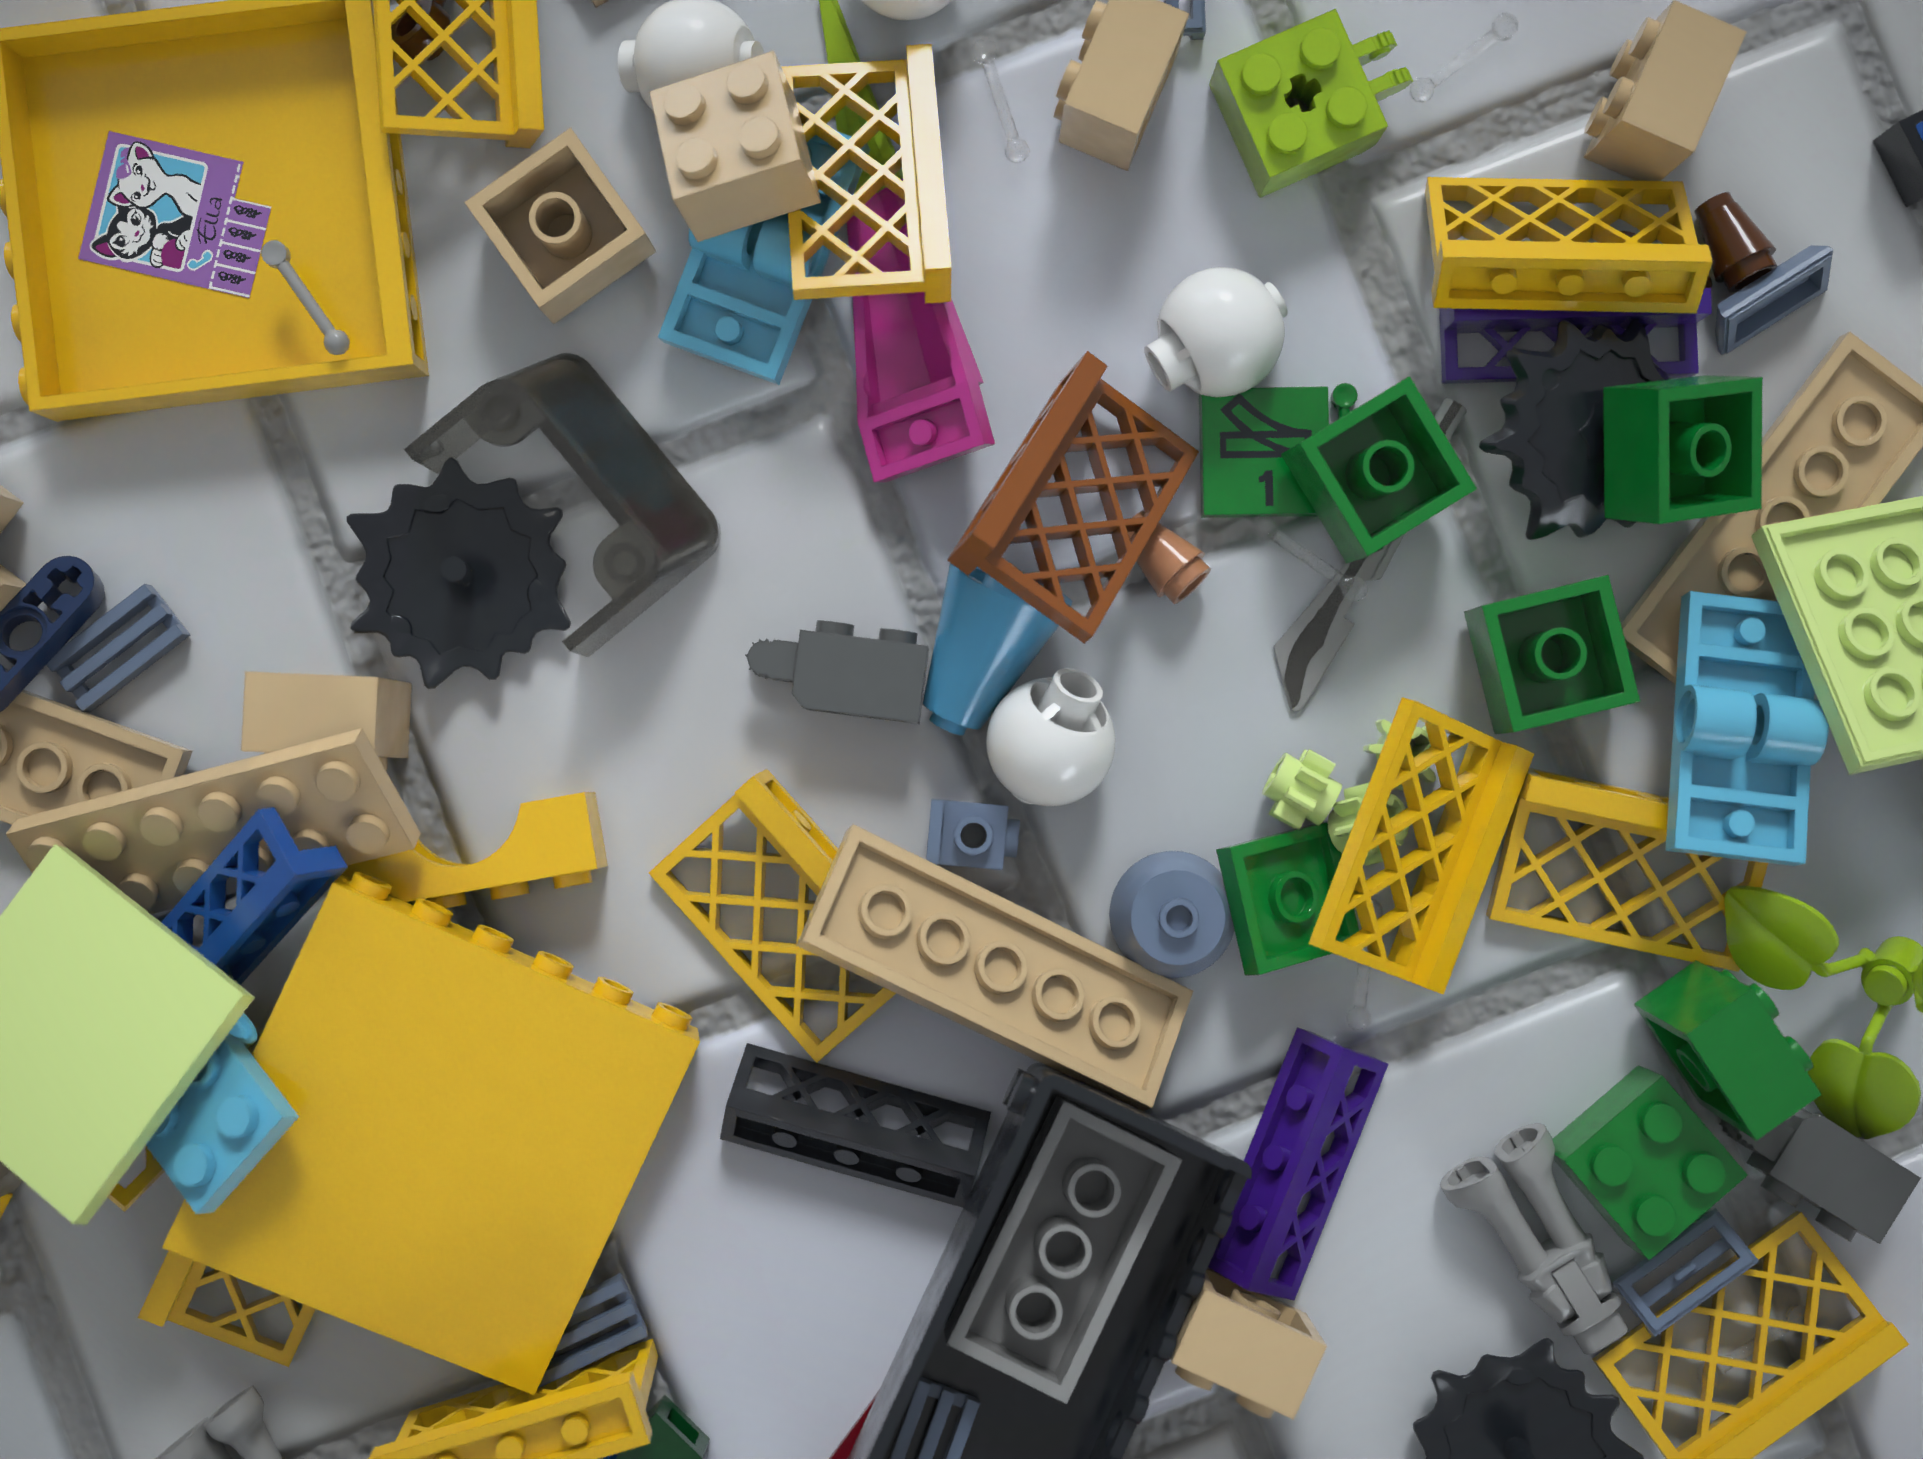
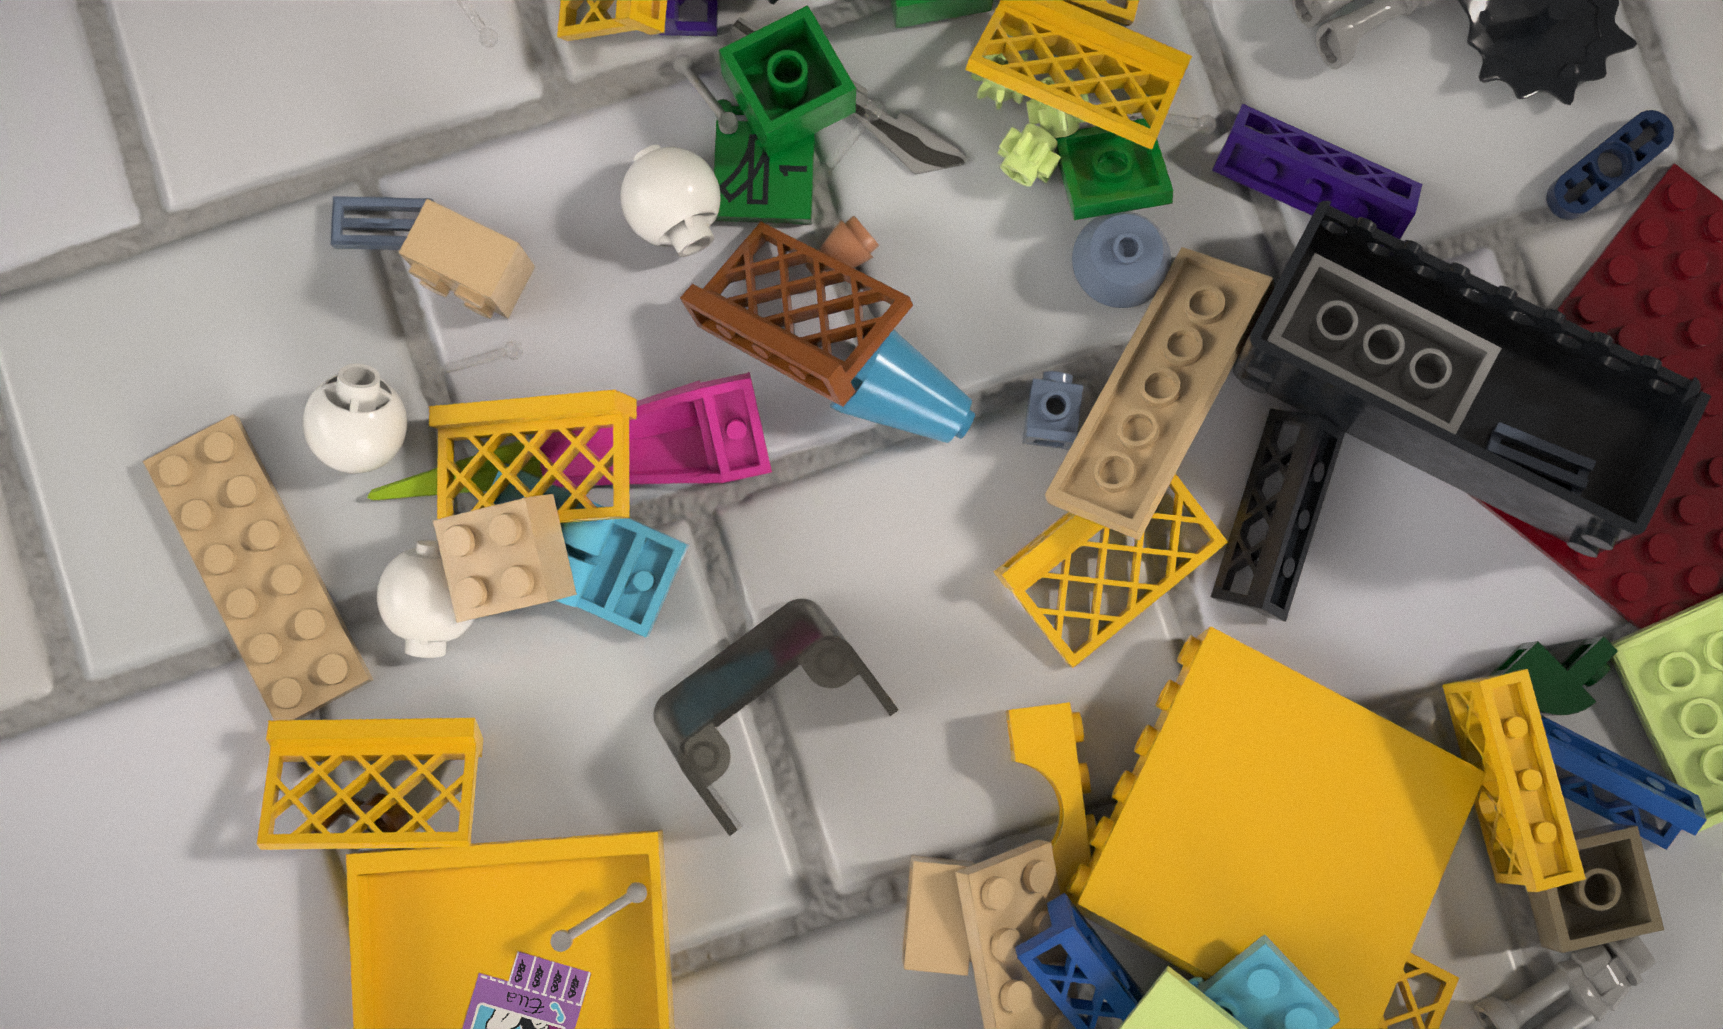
camera: 90 degrees left, 5 degrees down
(459, 573) = (826, 808): black piece -> none
(561, 226) = (552, 708): tan brick -> none
(605, 1344) = (1444, 717): sand blue tile -> none
(848, 672) = (923, 498): dark grey hinge -> none
(1052, 739) = (983, 340): white brick -> none
(1248, 1346) = (1461, 209): tan brick -> none
(1323, 72) = (477, 104): lime hinge -> none
(1325, 399) = (726, 120): none -> light grey hinge

